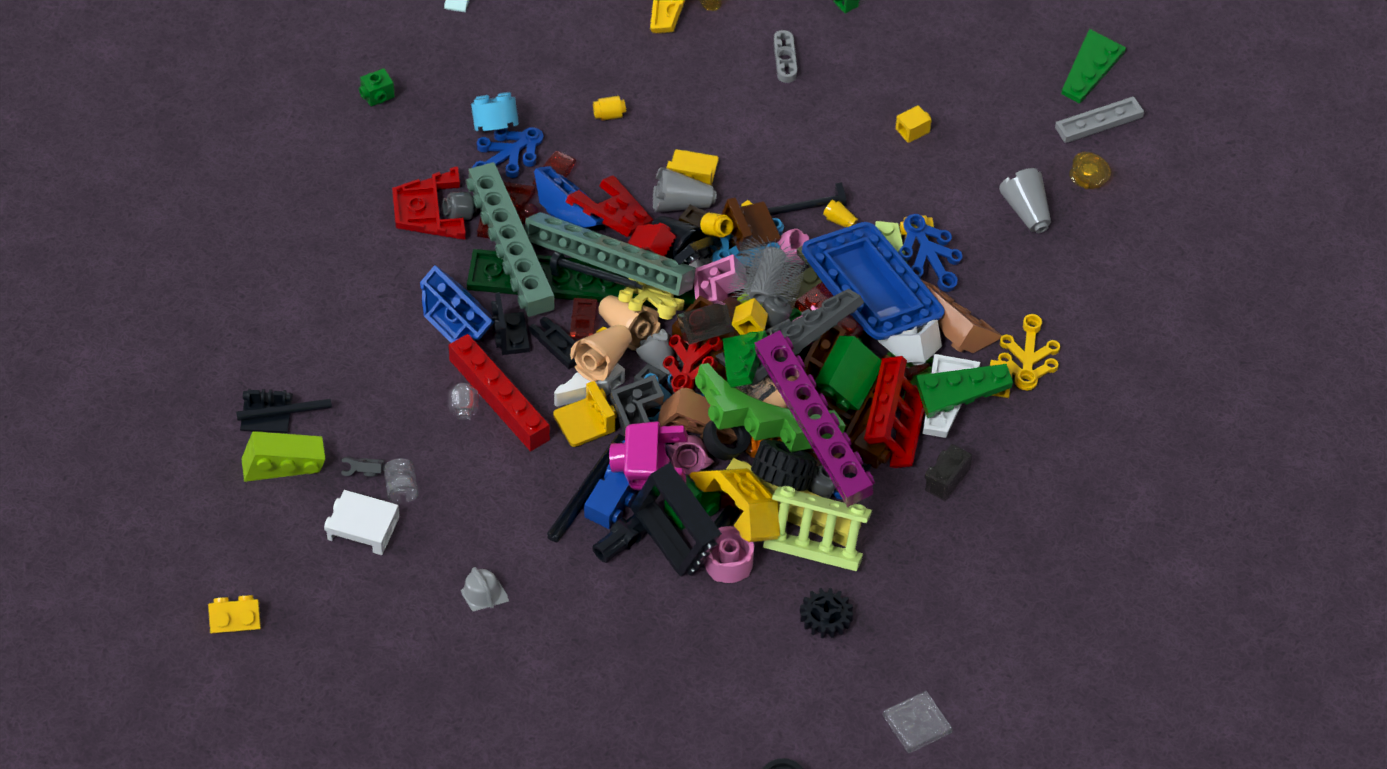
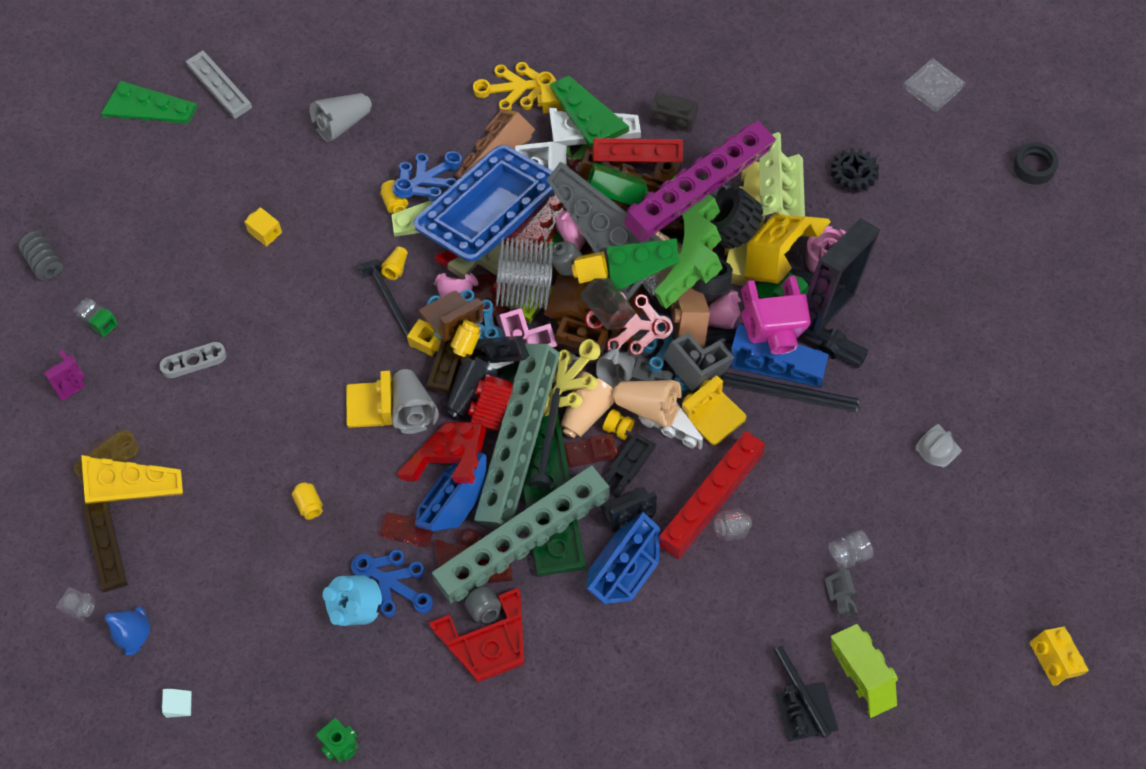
camera: 100 degrees left, 10 degrees up
(363, 520) = (910, 571): white panel -> none
(1089, 170) = (286, 80): clear yellow piece -> none

